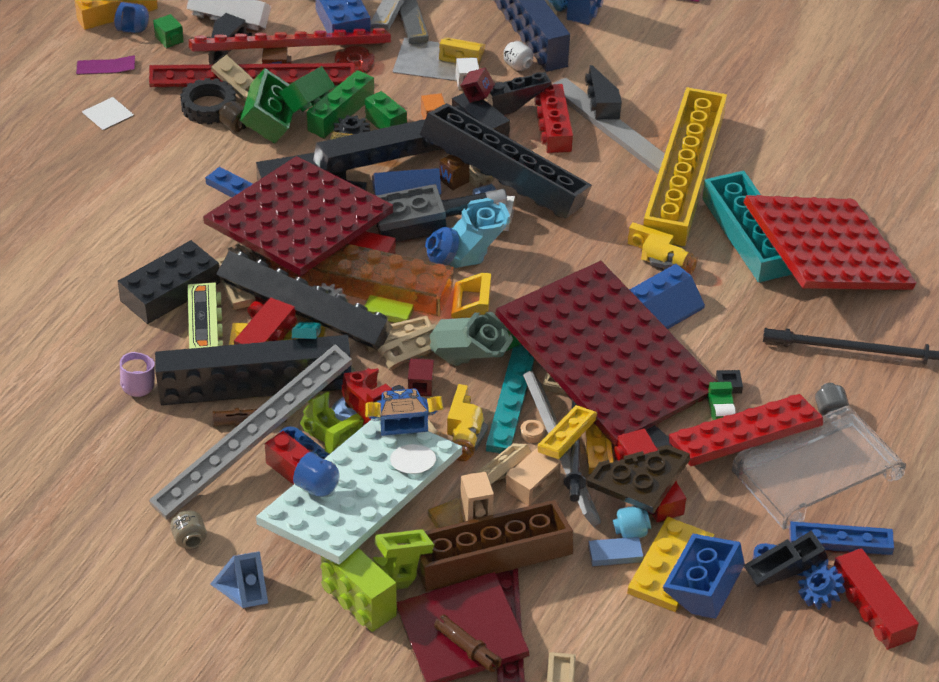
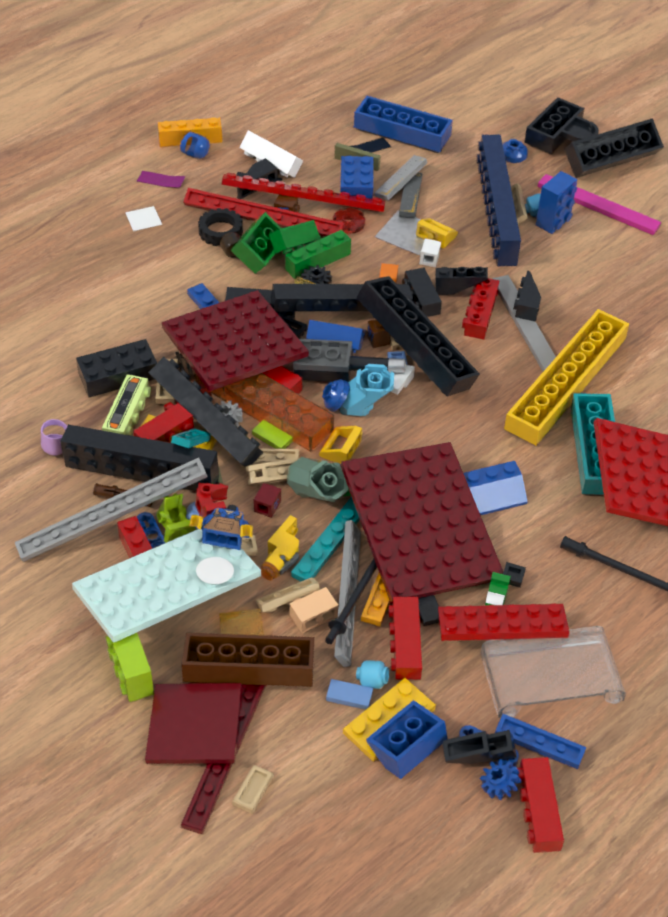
camera: 20 degrees right, 5 degrees up
(168, 31) = (218, 162): green brick -> none
(188, 529) = (31, 575): dark tan head -> none
(230, 72) = (245, 209): tan plate -> none
(243, 580) = (52, 630): medium blue slope -> none
(316, 475) = (127, 563): blue helmet -> none
(384, 111) = (348, 269): green brick -> none
(402, 560) = (168, 654): lime tile -> none
(474, 648) = (190, 744): reddish brown pin -> none
(476, 496) = (251, 616): light nougat brick -> none
(477, 84) = (426, 265): dark red brick -> none
(518, 55) = (477, 247): white head -> none
(532, 431) = (333, 570): light nougat tile -> none
(567, 432) = (353, 582): yellow tile -> none
(640, 477) = (391, 639): dark brown plate -> none
(659, 248) = (511, 444): yellow plate -> none
(830, 398) = (590, 615): dark grey head -> none

